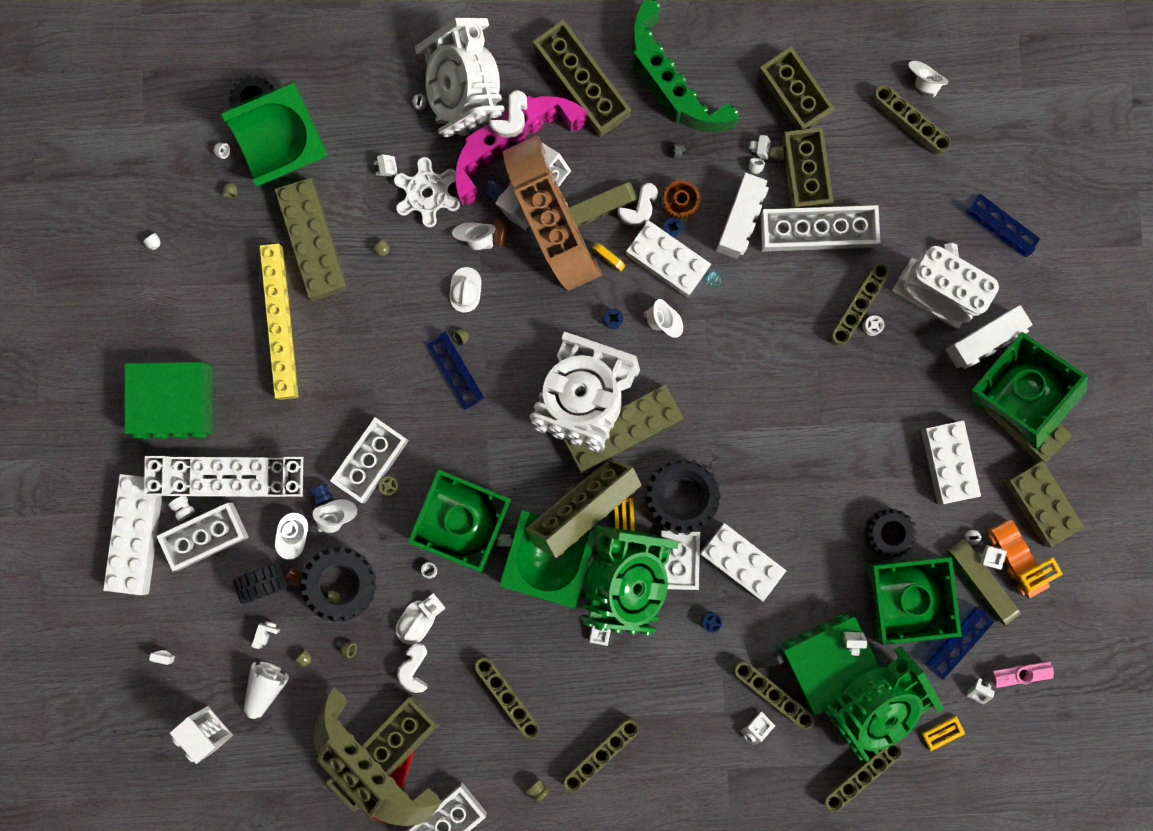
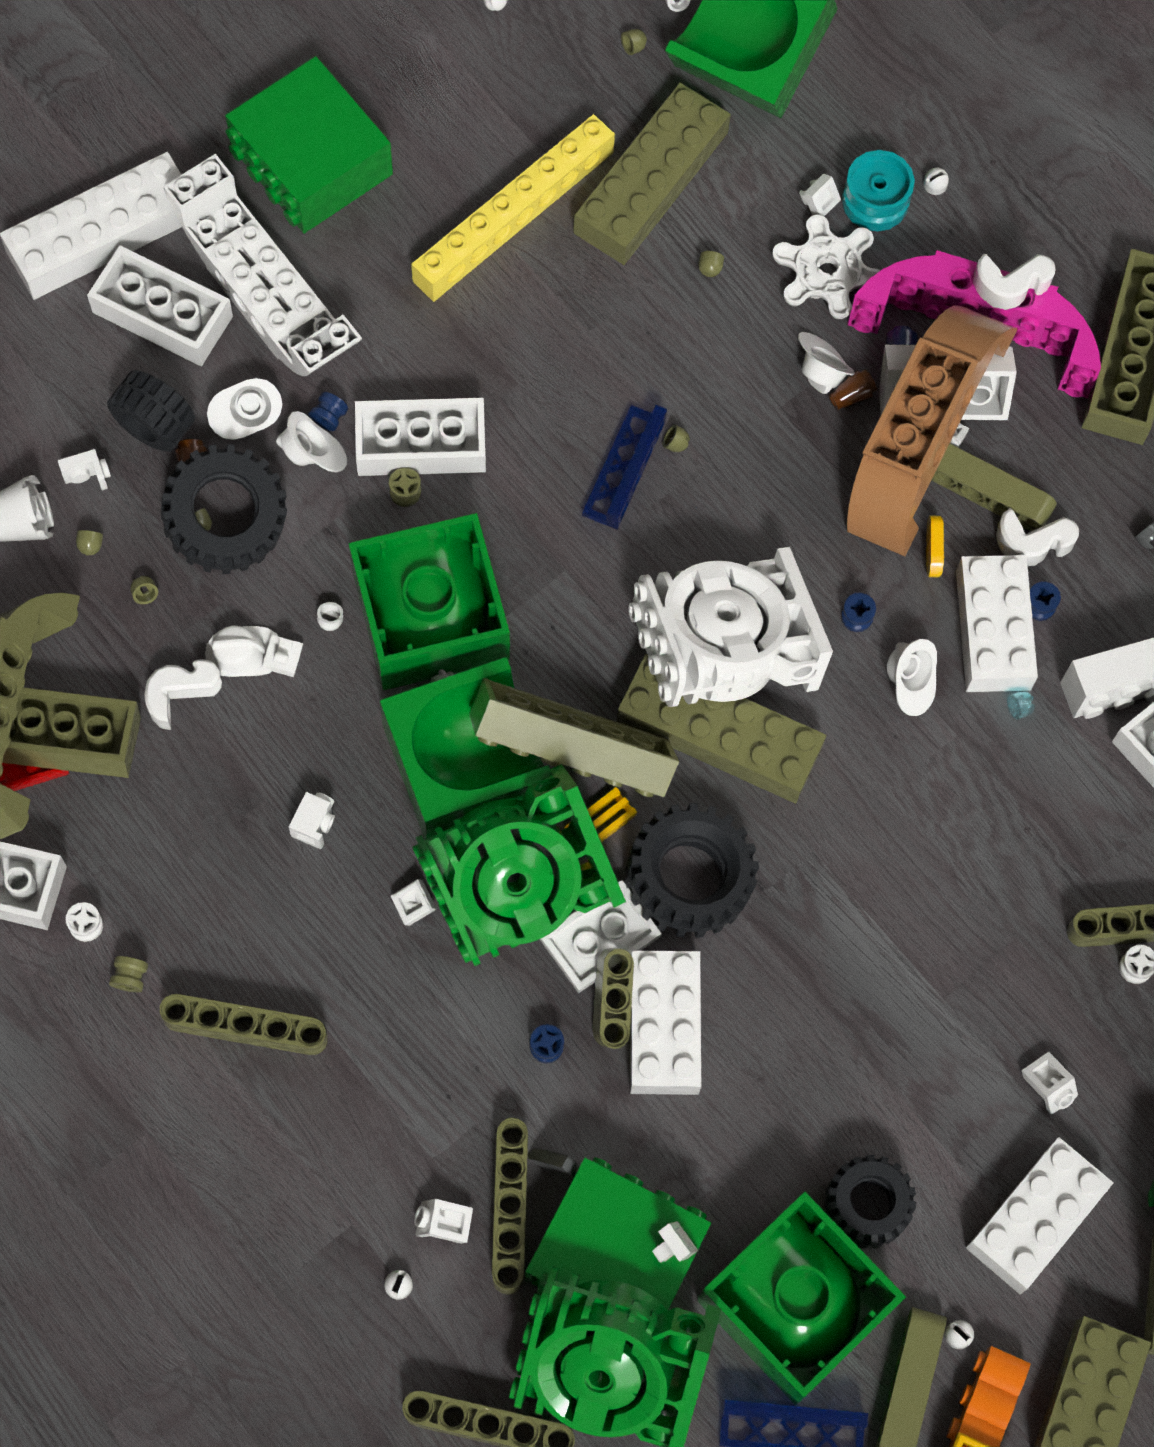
camera: 55 degrees right, 15 degrees down
(181, 508) = (179, 256): white wheel -> none
(401, 126) = (878, 190): none -> teal wheel
(461, 76) = (1011, 187): white brick -> none
(465, 289) = (741, 404): white piece -> none
(496, 797) = (80, 916): none -> white wheel
(509, 707) = (234, 855): olive beam -> none
(525, 651) = (312, 819): none -> white brick
(684, 191) = (1086, 597): dark orange brick -> none
(723, 580) = (621, 1013): none -> olive beam
(766, 771) = (405, 1287): none -> white hinge
(896, 408) = (1051, 1082): none -> white bracket
(993, 557) = (955, 1374): white tile -> none

